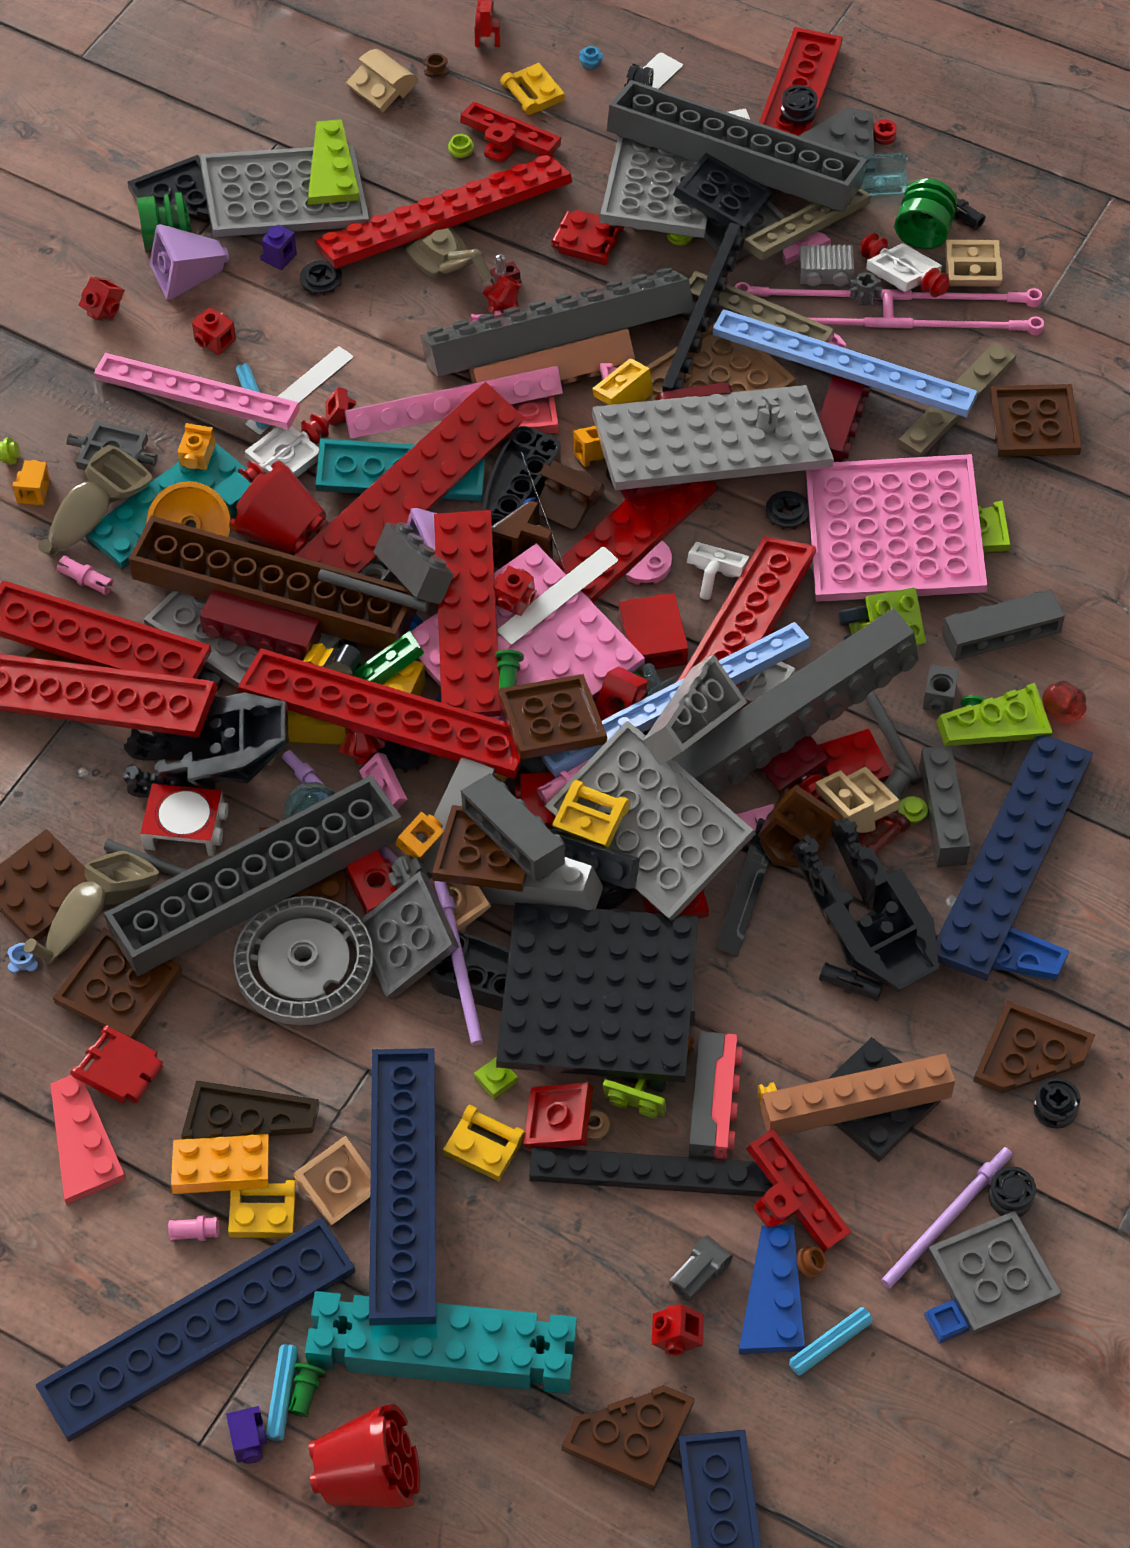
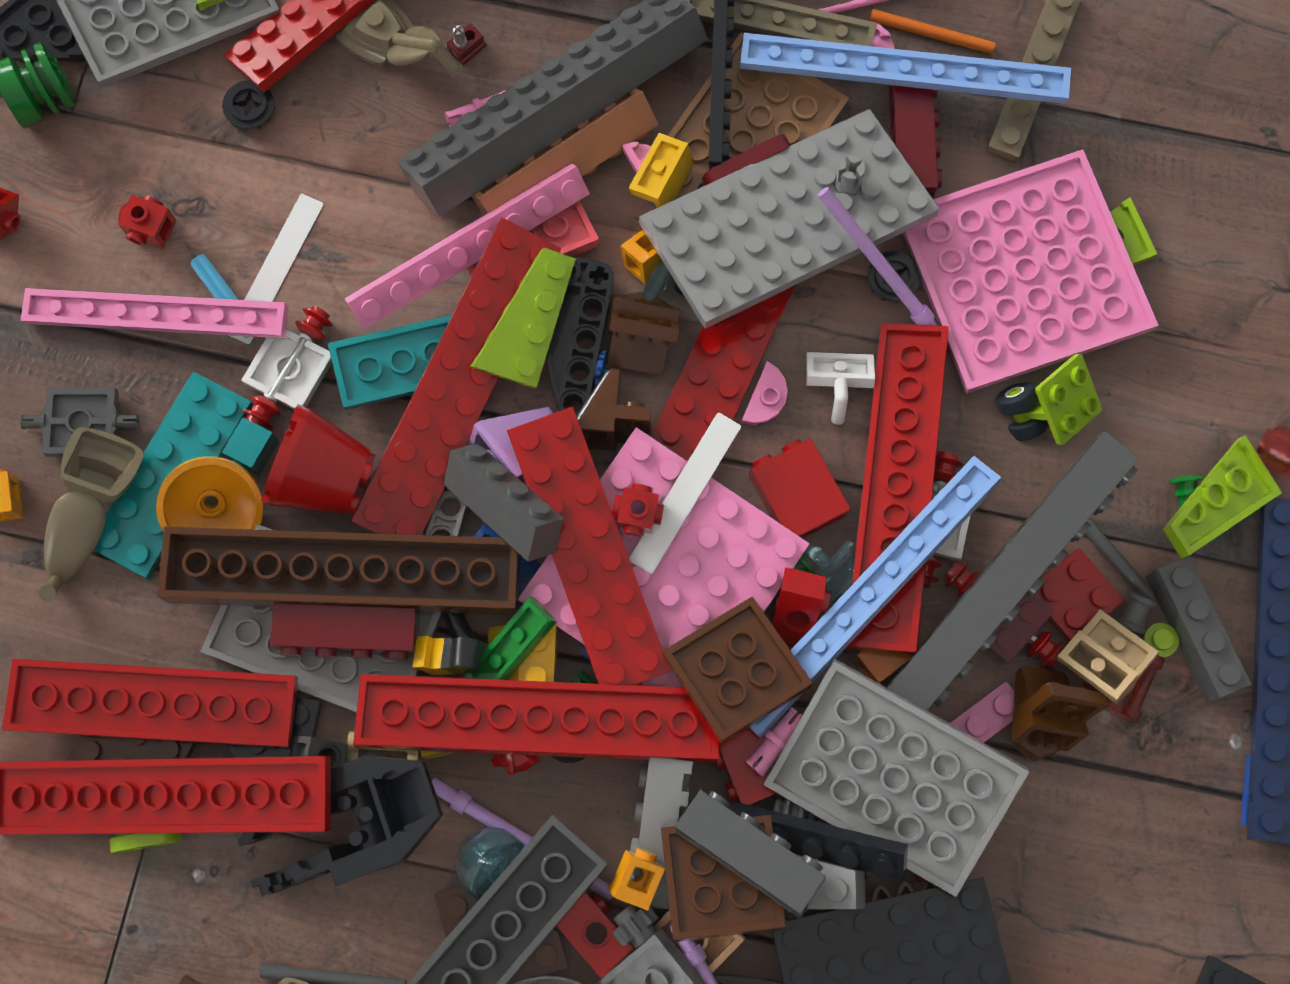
camera: 20 degrees left, 20 degrees up
(53, 731) = (135, 841): none -> lime plate
(85, 575) = (108, 608): bright pink pin -> none
(184, 259) = (77, 129): lavender slope -> none
(184, 816) = (342, 916): panel -> none
(196, 447) = (192, 408): light orange brick -> none
(275, 243) = (179, 76): dark purple brick -> none
(337, 404) = (330, 284): red tile -> none
(373, 590) = (465, 557): dark grey bar -> none
(384, 775) = (558, 793): bright pink plate -> none
(476, 460) = (524, 331): none -> lime wing
(502, 294) = (475, 76): red rock -> none
(508, 667) = (663, 617): green pin -> none
(543, 512) = (625, 374): black sticker -> none
(587, 822) = (826, 804): yellow plate -> none
(593, 463) = (657, 282): none -> clear light blue tile
(696, 708) = (911, 635): light grey wedge -> none
(744, 896) = (1014, 820): black sticker -> none
(797, 534) = (919, 313): none -> lavender bar
(832, 973) = (1166, 888): black pin -> none
(878, 351) = (932, 31): none -> orange piece
(897, 936) = (1191, 819): black connector -> none
(944, 680) = (1153, 463): dark grey brick -> none
(1003, 624) = (1183, 365): dark grey brick -> none
(1035, 420) = (1131, 77): reddish brown plate -> none

